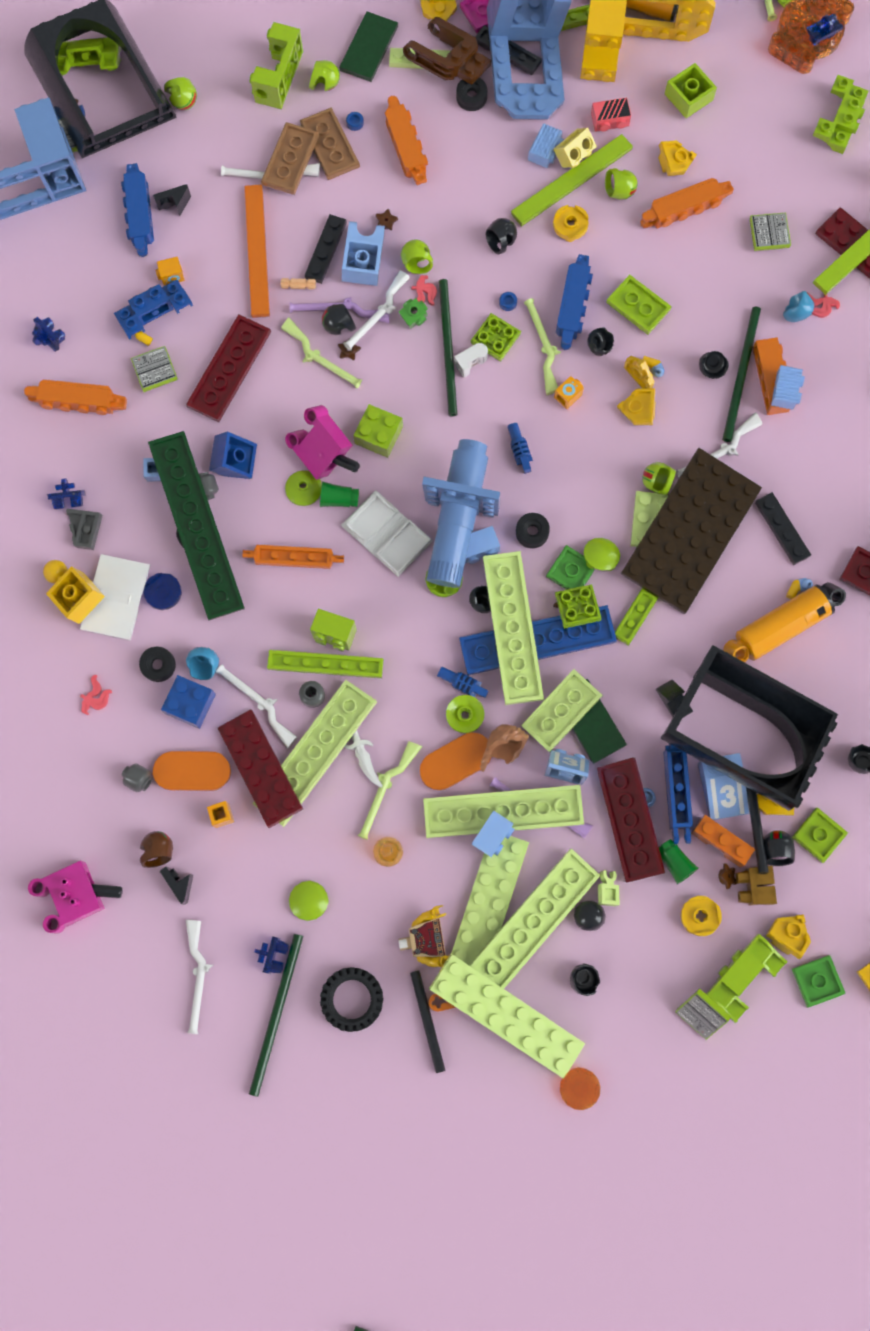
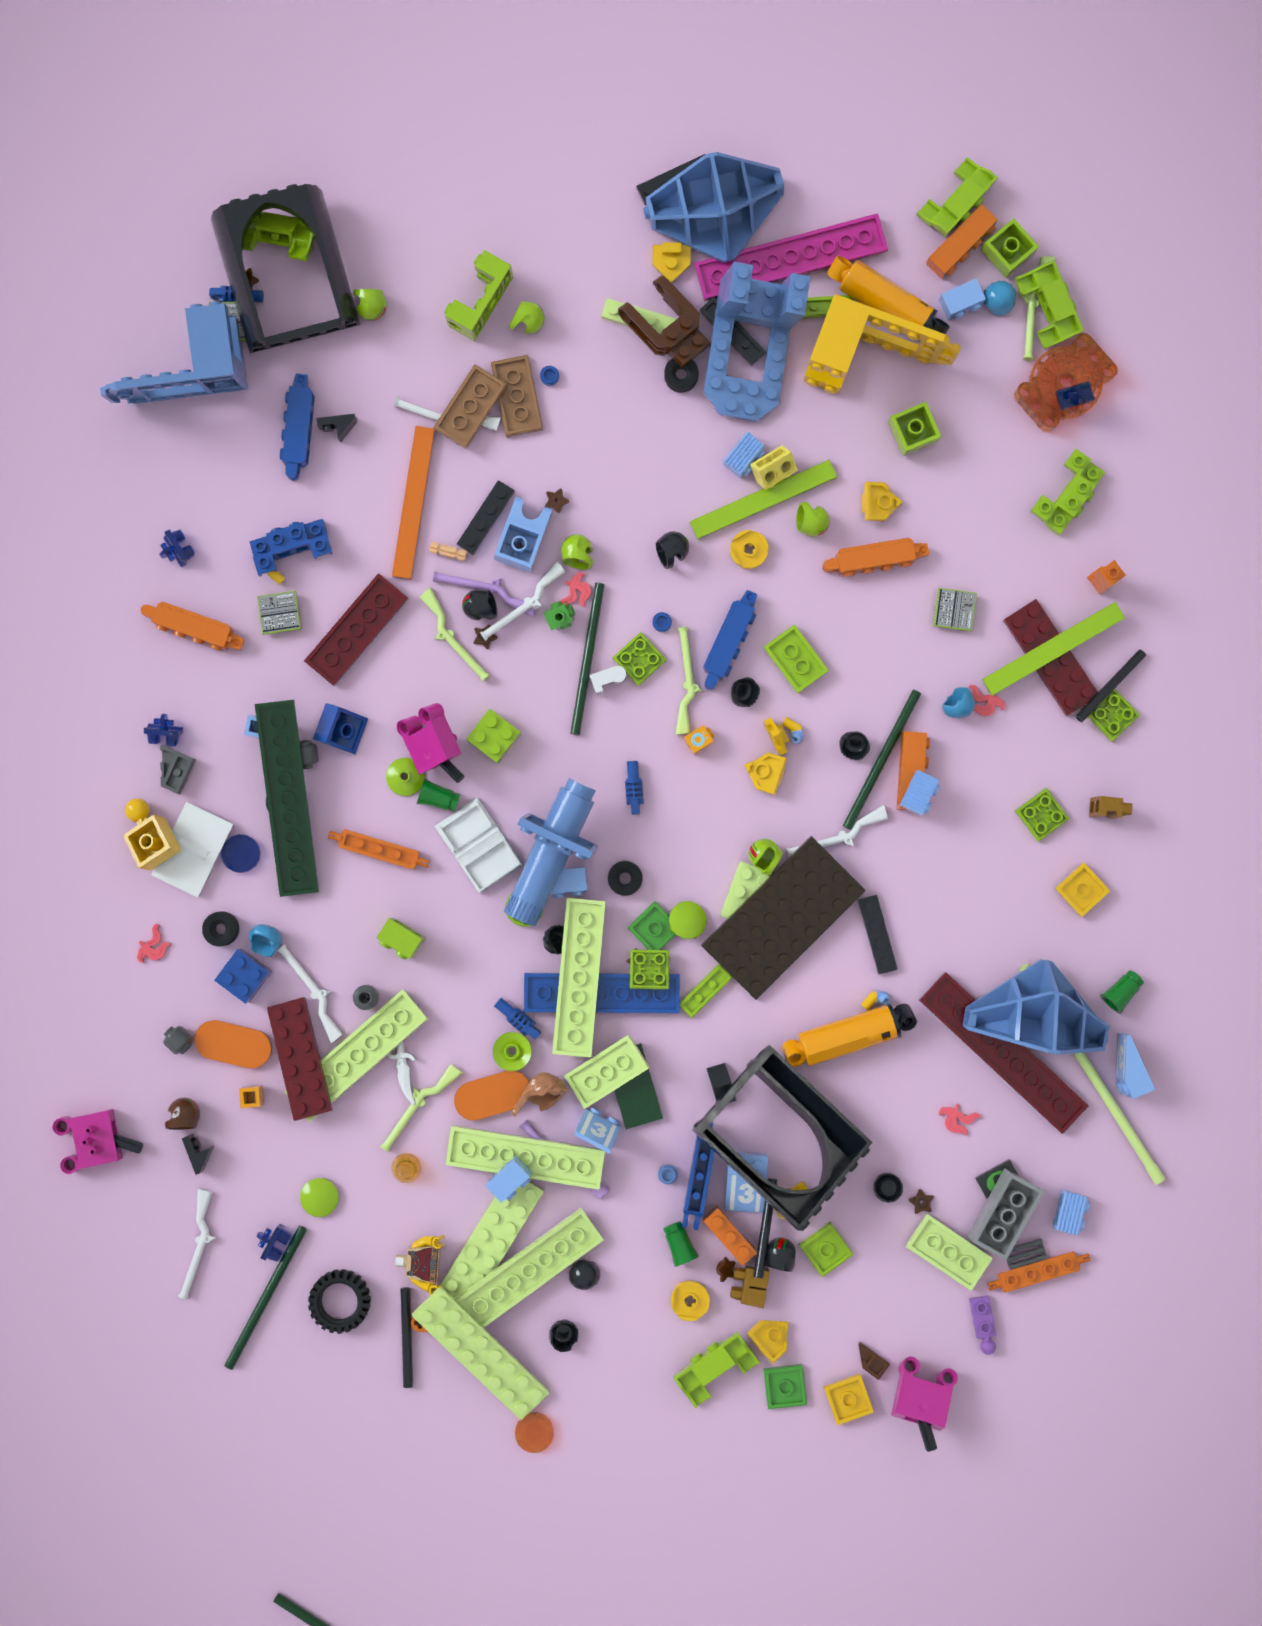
camera: 10 degrees right, 10 degrees up
(169, 270) = (317, 507): light orange brick -> none
(325, 664) = (386, 968): lime plate -> none
(368, 46) = (584, 289): dark green tile -> none
(405, 141) = (596, 414): orange hinge -> none
(608, 892) = (607, 1257): yellowish green plate -> none
(611, 114) = (823, 435): coral brick -> none
(630, 820) = (646, 1194): dark red plate -> none
(703, 1014) = (666, 1393): tile -> none

